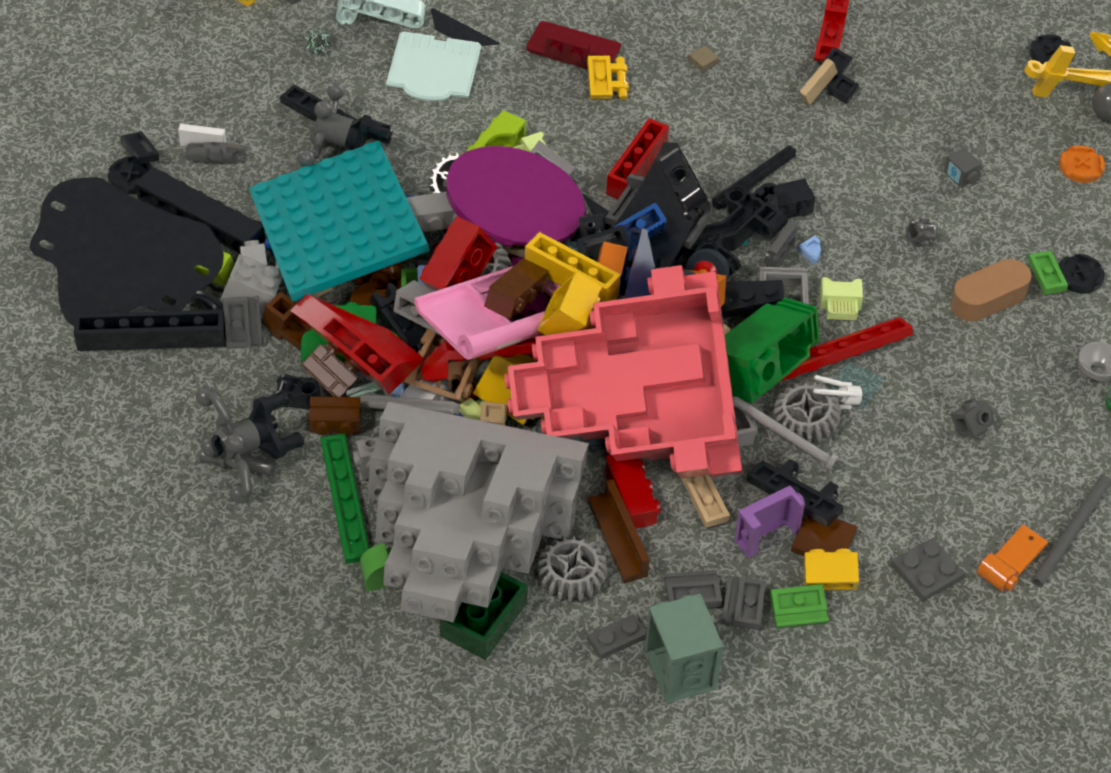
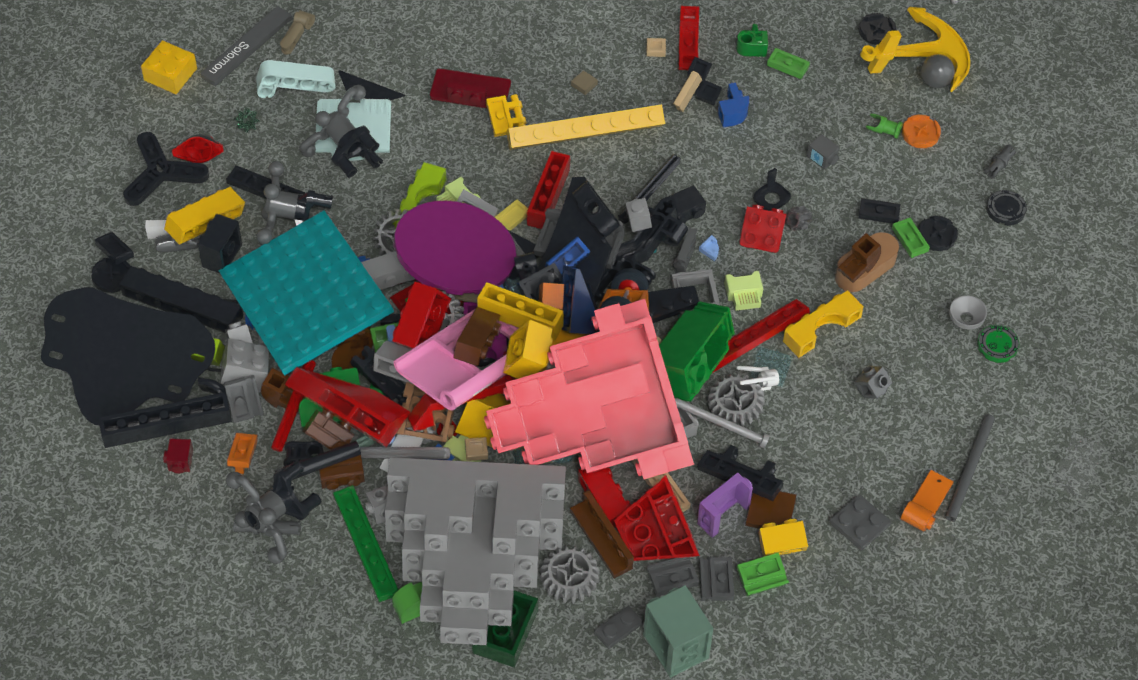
camera: 10 degrees left, 5 degrees up
(157, 370) = (179, 455): none -> dark red brick
(199, 84) = (152, 178): none -> black piece
(228, 377) = (242, 451): none -> orange hinge
(245, 127) = (194, 217): none -> yellow brick
(255, 158) = (219, 243): none -> black brick
(256, 61) = (198, 148): none -> red hat
(289, 347) = (289, 415): none -> red axle
(320, 398) = (328, 458): none -> black piece
(424, 74) = (349, 140): none -> wheel
(592, 181) = (513, 215): none -> light yellow tile
(684, 531) = (657, 526): none -> red wedge
(695, 101) = (585, 127): none -> yellow brick
(732, 195) = (638, 214): none -> light grey brick
(792, 34) = (656, 47): none -> tan tile
(868, 109) = (735, 108): none -> blue brick
(876, 237) = (763, 228): none -> red bracket
(894, 195) = (771, 187): none -> black piece
(903, 44) = (752, 42): none -> green piece
(940, 71) = (788, 63): none -> bright green plate
(951, 336) = (841, 310): none -> yellow arch
(987, 280) = (863, 258): none -> reddish brown brick
(1016, 239) = (879, 211): none -> black plate
(1041, 152) = (886, 126): none -> bright green piece

